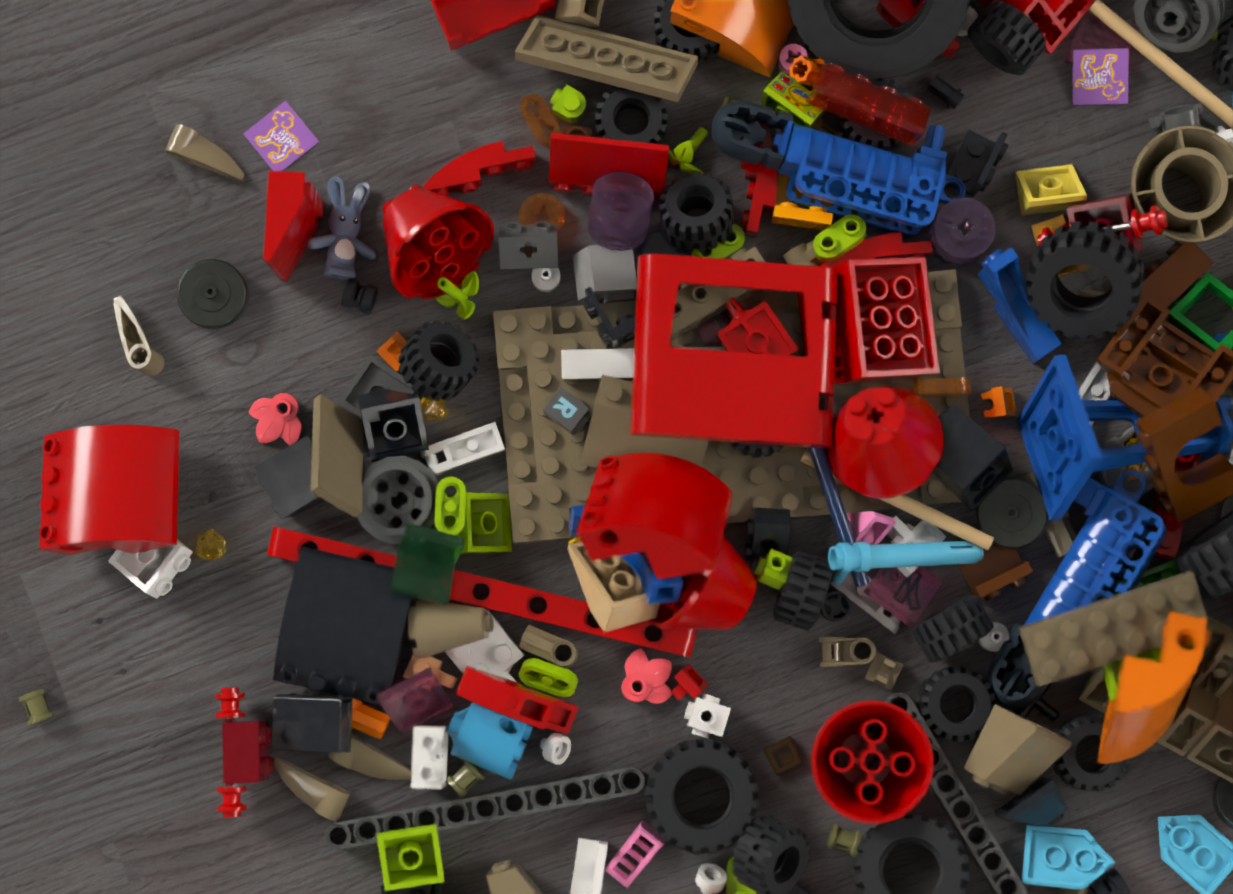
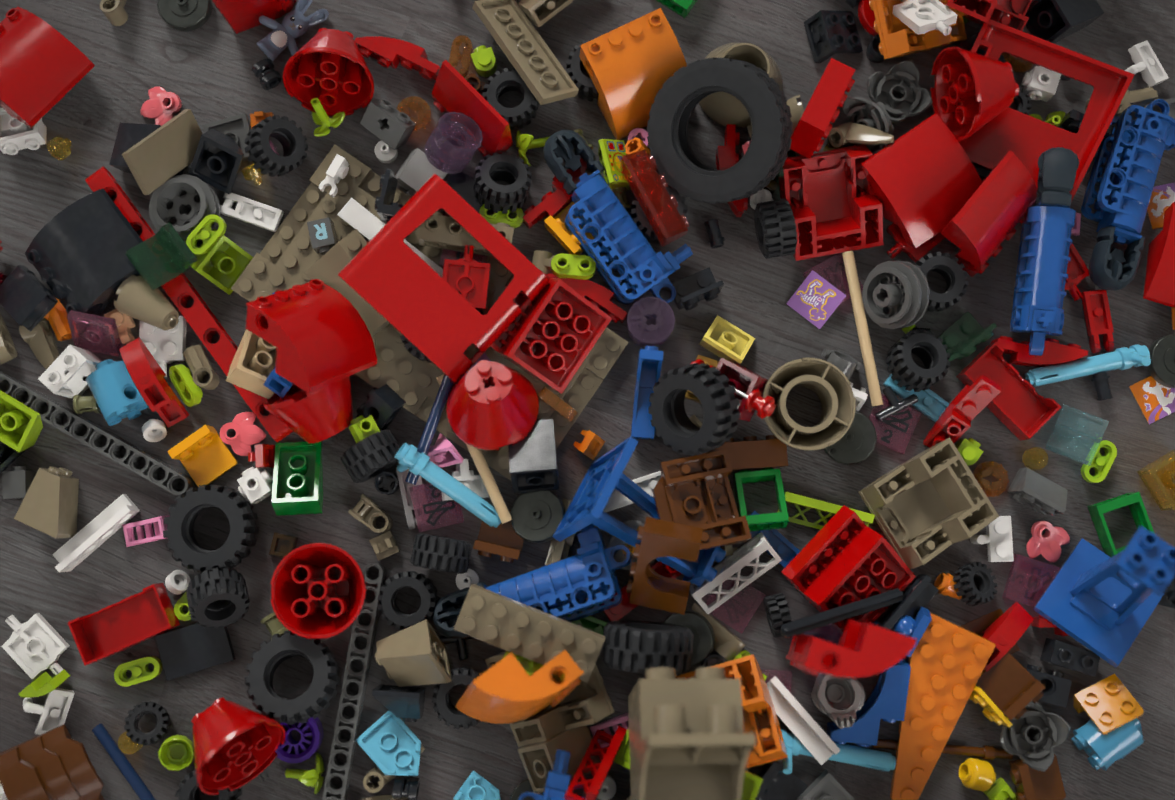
camera: 40 degrees right, 0 degrees up
(525, 334) = (336, 171): none -> white plate
(631, 732) = (204, 455): none -> light orange bracket
(742, 675) = (297, 479): none -> green slope

